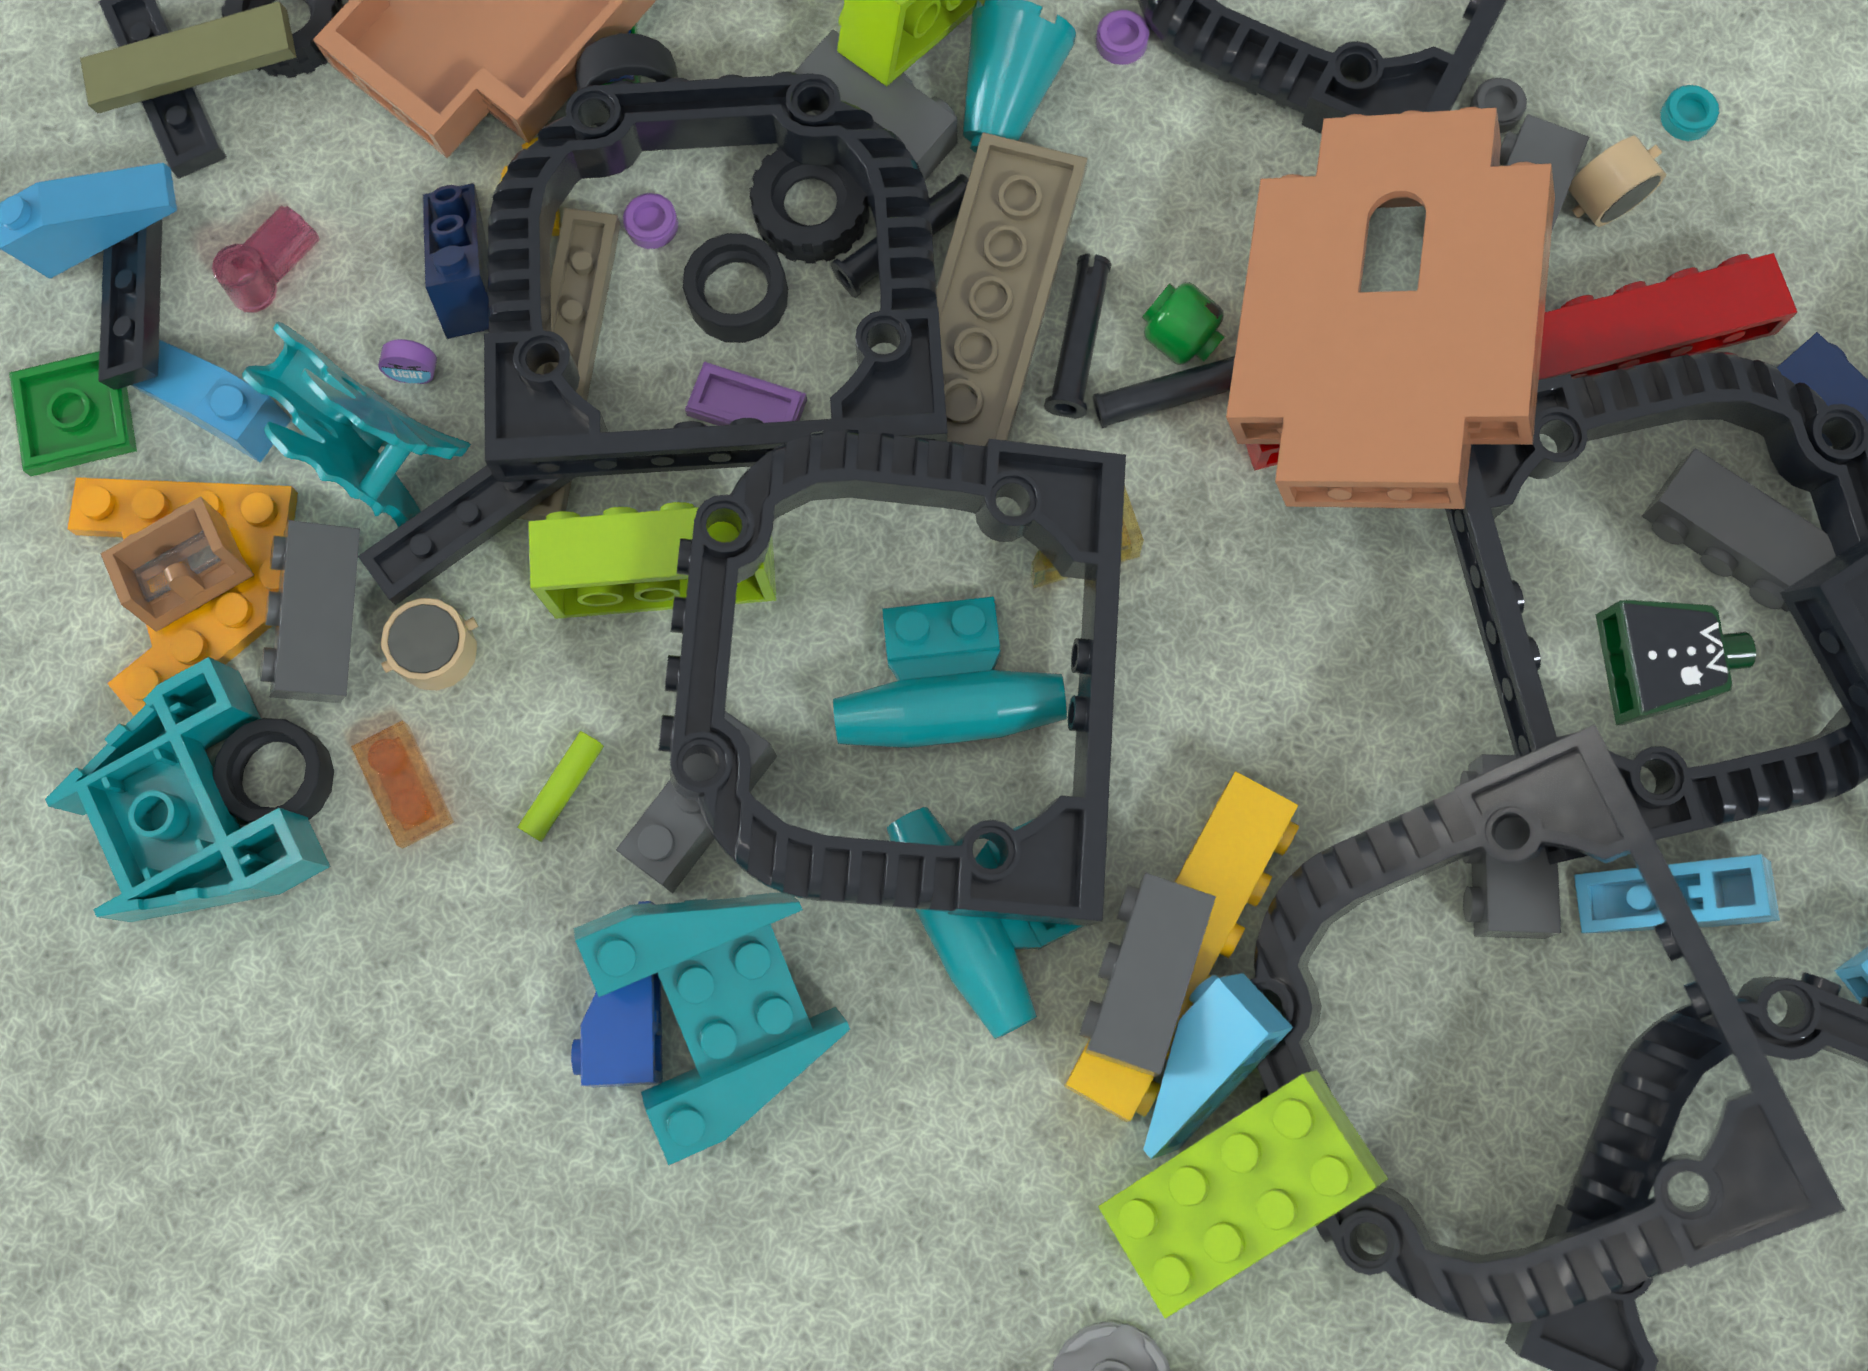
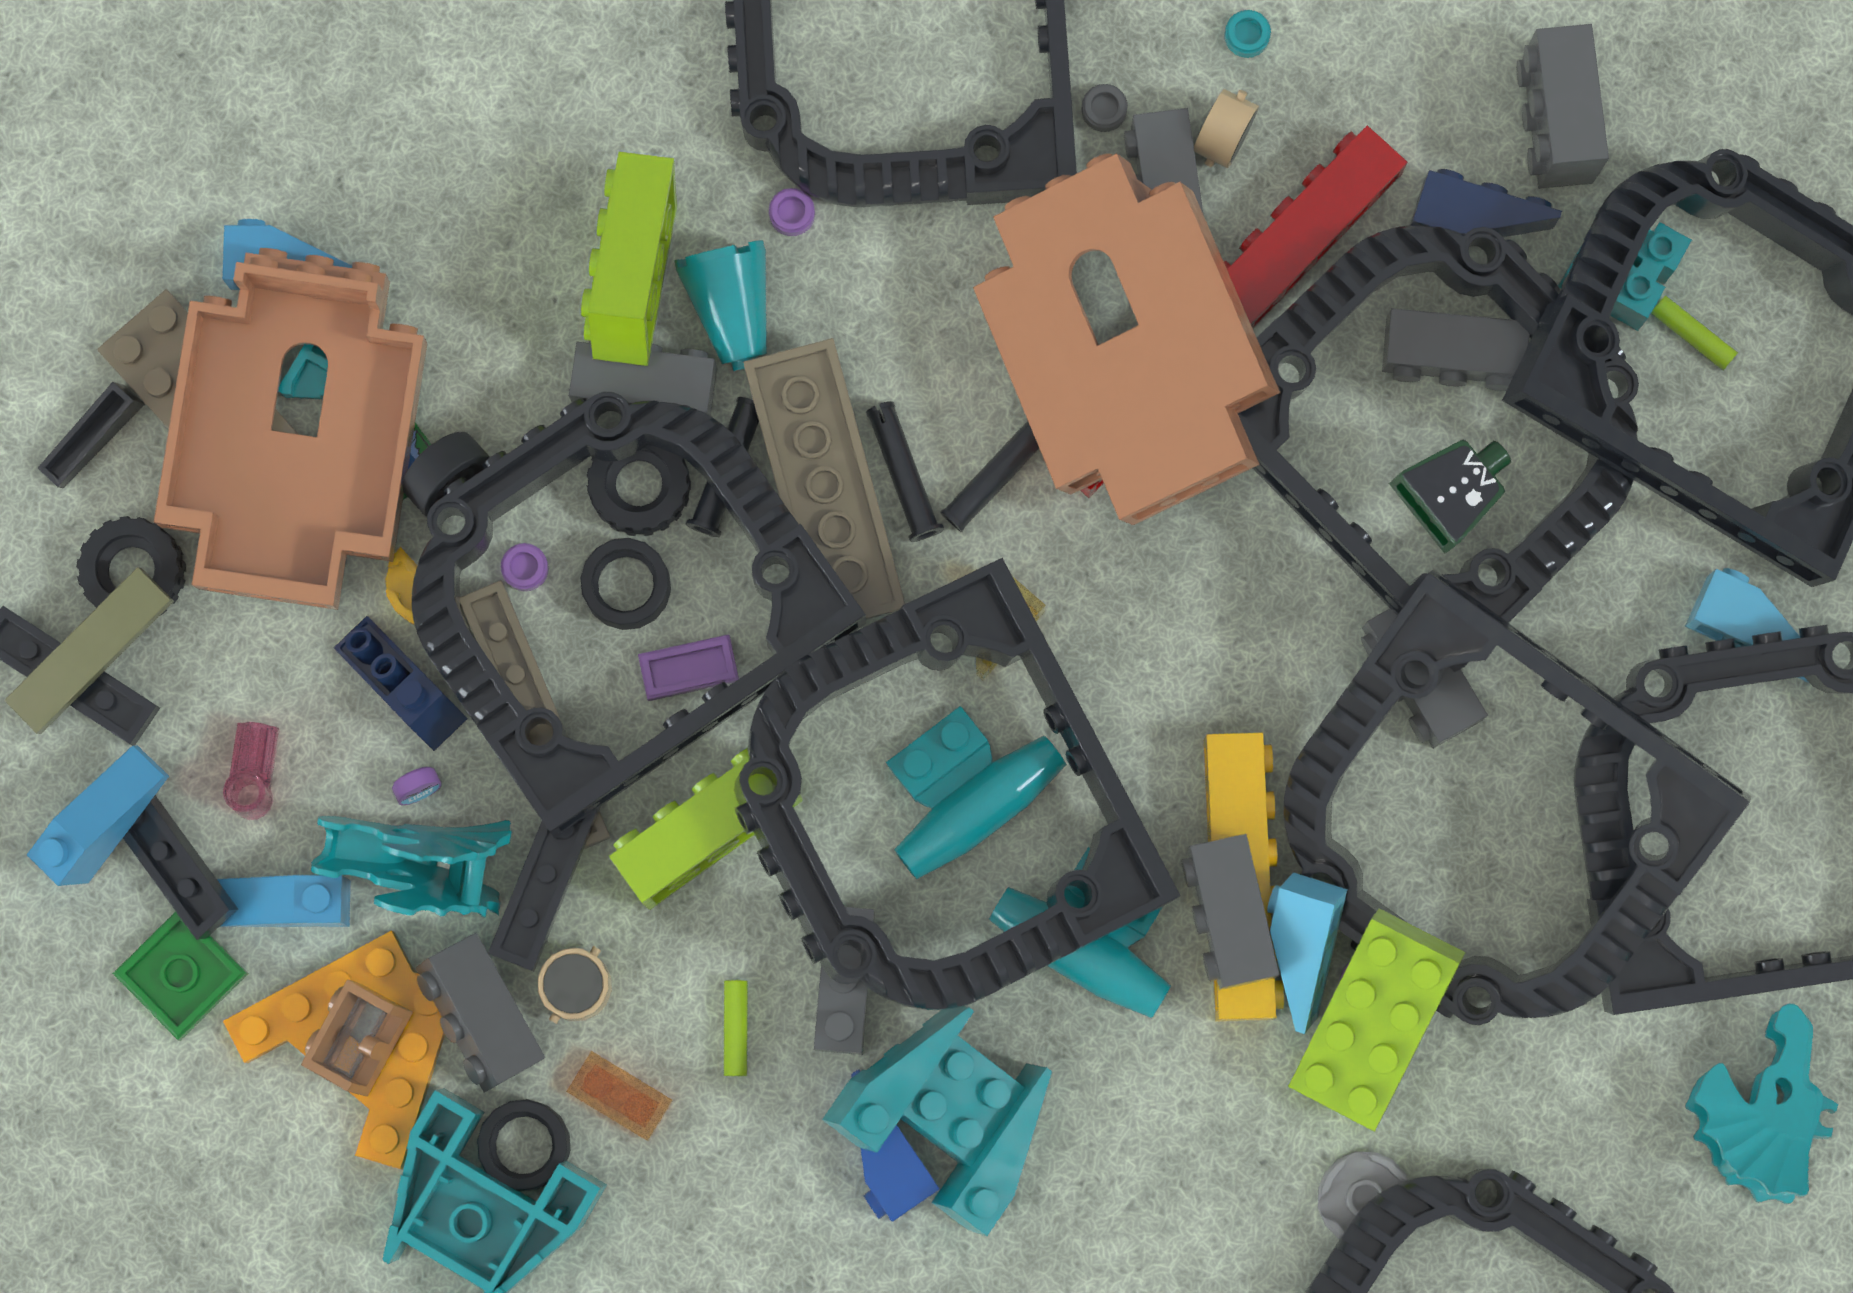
camera: 35 degrees left, 5 degrees up
(1184, 323) = (975, 419): green head -> none
(1715, 890) = (1560, 632): medium azure slope -> none

